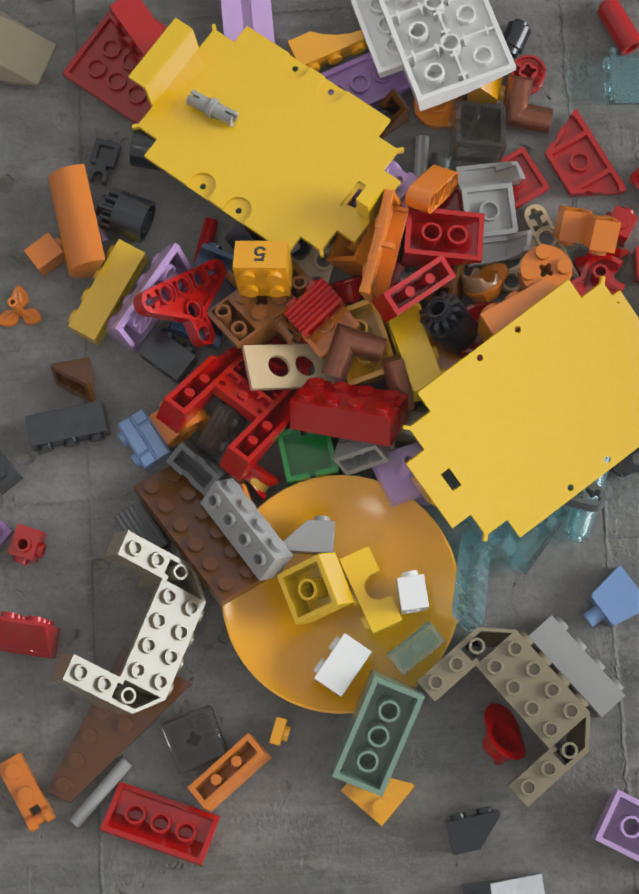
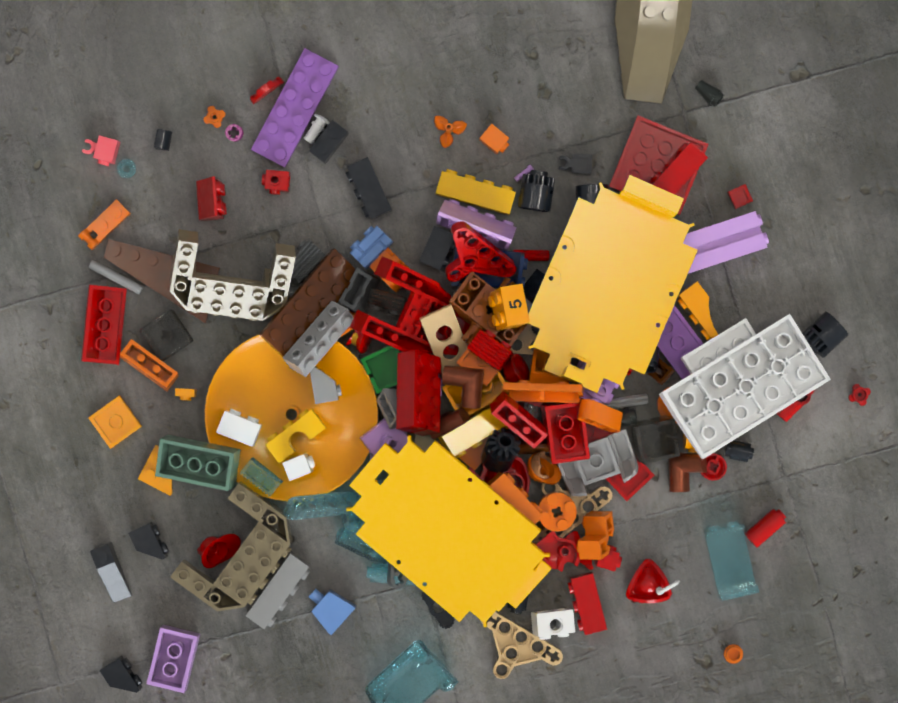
camera: 65 degrees right, 10 degrees up
(76, 220) = (521, 157): orange brick -> none
(76, 377) = (406, 186): reddish brown slope -> none
(212, 108) = (624, 240): light grey pin -> none
(296, 840) = (115, 421): none -> light orange tile
(315, 588) = (286, 397): yellow brick -> none
(581, 161) = (652, 520): red wing -> none

